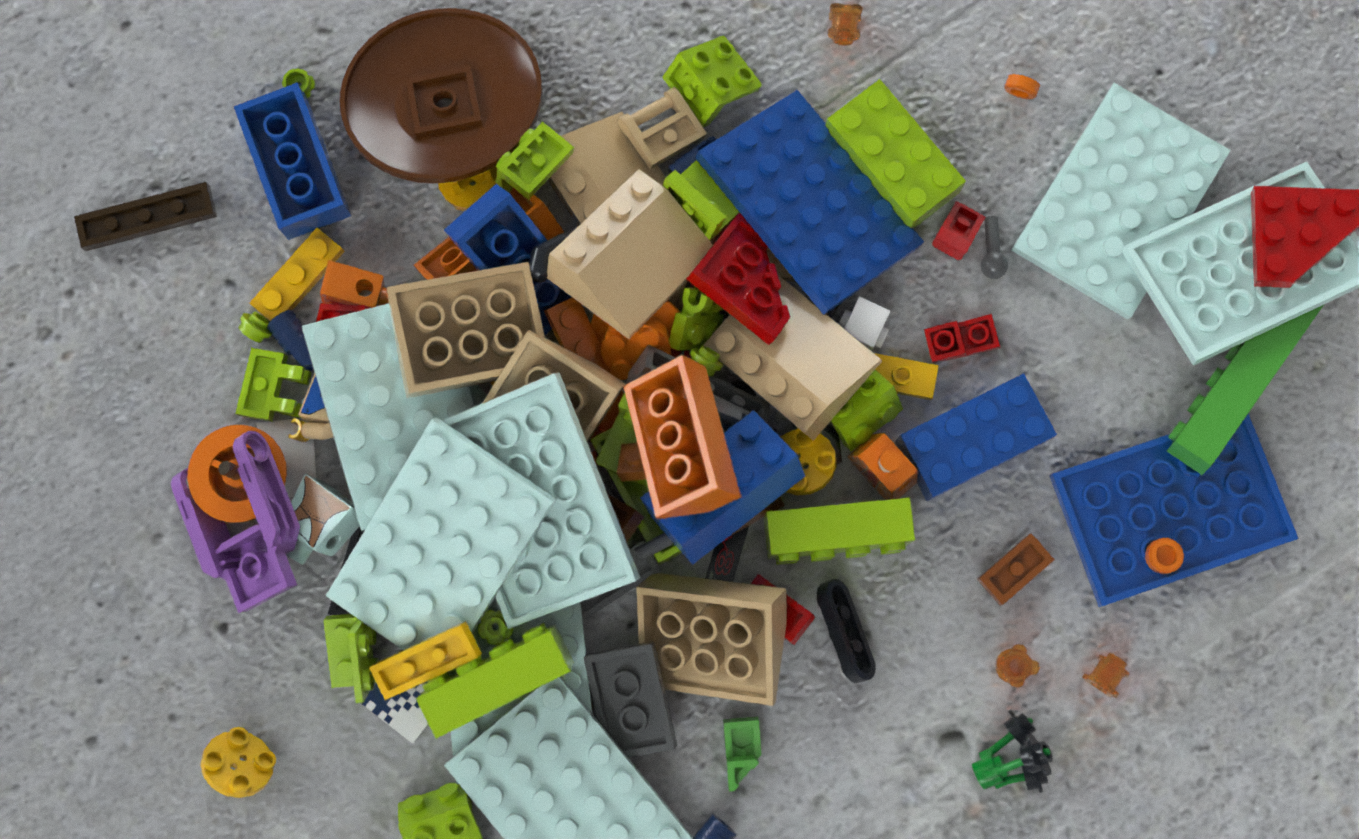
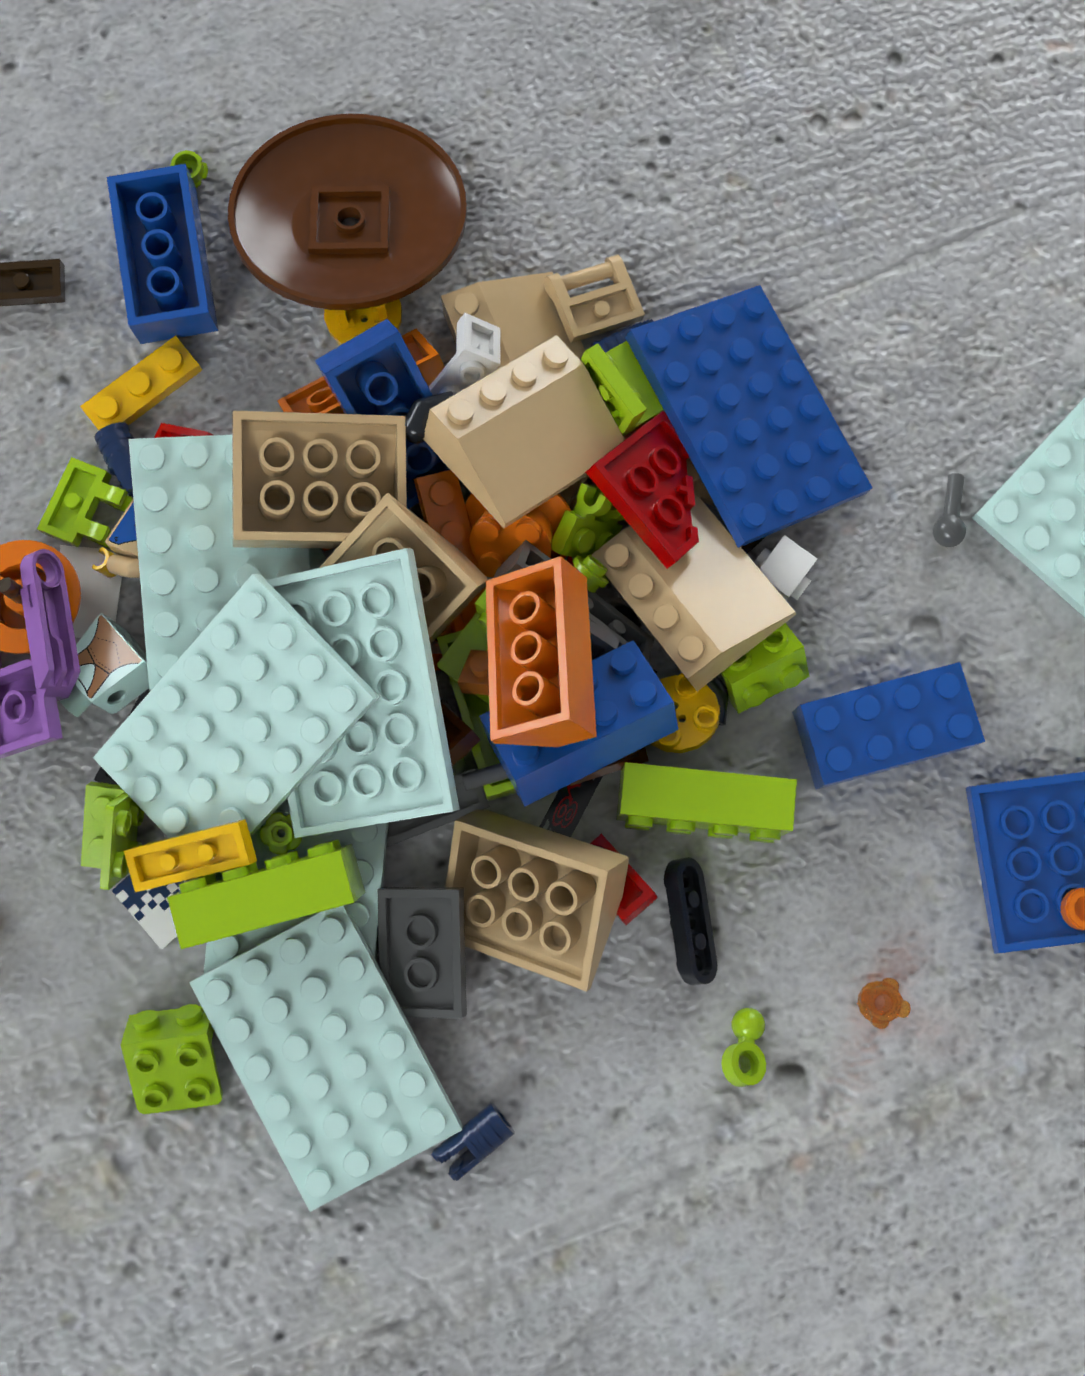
camera: 10 degrees right, 0 degrees up
(254, 326) = (80, 434): lime plate -> none
(344, 283) = (194, 404): orange torso -> none
(533, 161) = (435, 303): lime bracket -> none
(575, 201) = (474, 358): none -> white bracket
(711, 77) = (662, 251): lime bracket -> none
(741, 748) = (541, 1033): bright green slope -> none
(844, 23) = (830, 219): clear orange brick -> none
(884, 466) = (774, 738): orange torso -> none
(895, 154) = (859, 380): lime brick -> none
(909, 376) = (824, 640): yellow plate -> none
(910, 708) = (748, 1027): none -> lime plate
(958, 231) = (914, 483): red slope -> none
(962, 338) = (894, 609): red slope -> none
(1015, 569) = (904, 889): dark orange plate -> none
(1022, 86) = (1022, 331): orange tile -> none
(1033, 758) = (882, 1116): plant -> none
(1107, 674) = (989, 1035): clear orange brick -> none

